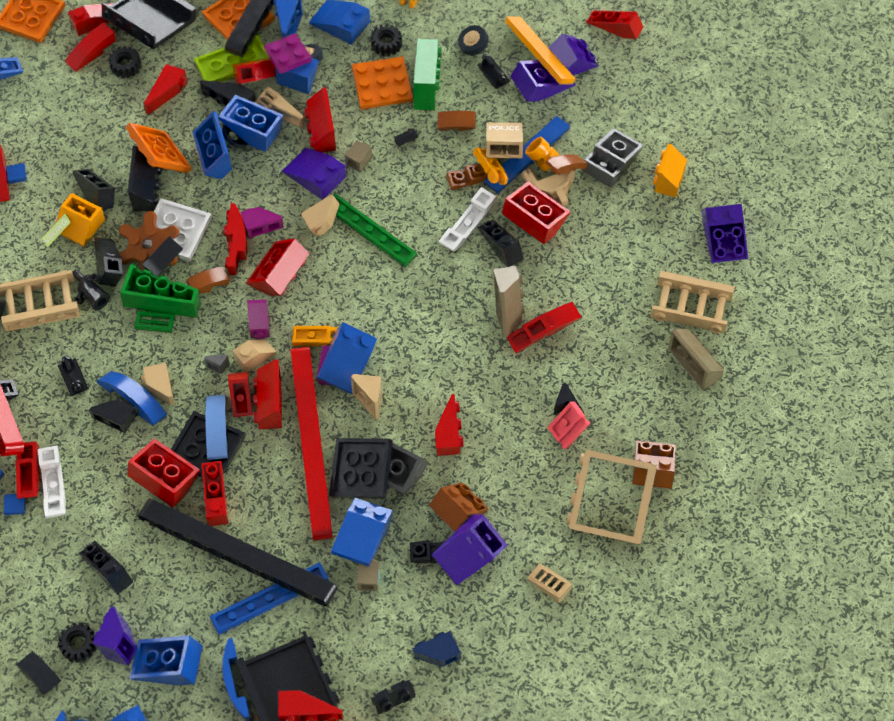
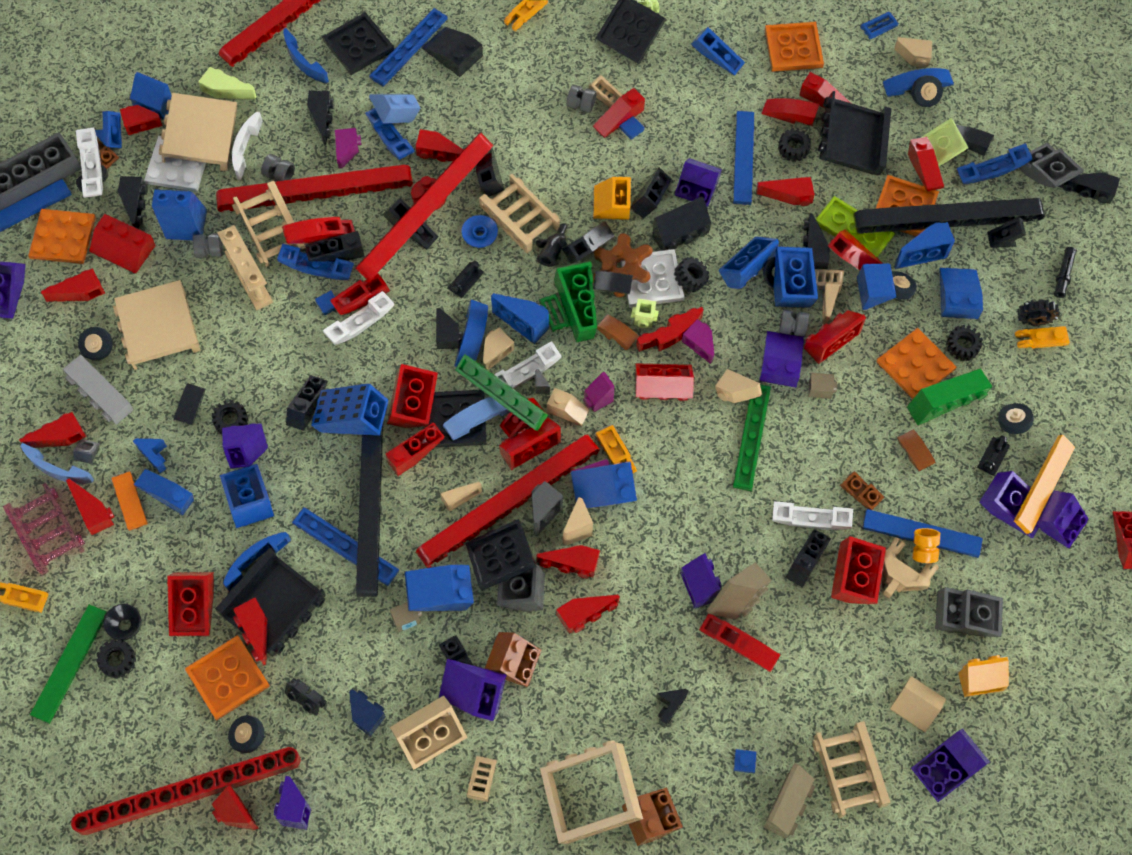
camera: 60 degrees right, 5 degrees up
(31, 334) = (479, 224): none -> blue dish
(56, 230) = (592, 187): yellowish green sticker -> none
(105, 103) = (743, 158): none -> blue tile
(108, 148) = (698, 181): none -> dark purple slope
(144, 345) = (522, 315): none -> blue slope
(144, 527) = (350, 410): none -> blue slope
(158, 148) = (718, 218): orange plate -> none
(194, 196) = (686, 280): none -> black tyre
(195, 368) = (525, 371): none -> white slope
(206, 249) = (644, 313): none -> yellowish green brick
(208, 394) = (501, 392): none -> green tile
(281, 482) = (458, 496): none -> tan slope
(287, 53) = (883, 266): magenta plate -> none
(290, 146) = (794, 323): none -> dark grey wheel
(337, 413) = (545, 505): none -> dark grey slope
(399, 413) = (574, 559): none -> red slope
(406, 137) = (869, 415): black pin -> none
(476, 326) = (701, 581): none -> dark purple slope
(485, 605) = (428, 732): none -> tan slope
(491, 167) = (883, 505): light orange hinge -> none
(504, 140) = (918, 503): tan brick -> none
(565, 163) = (926, 570): dark orange slope -> none
(568, 425) = (646, 716): coral plate -> none
(643, 375) = (745, 761): none -> blue plate
(665, 230) = (918, 704): none -> tan slope

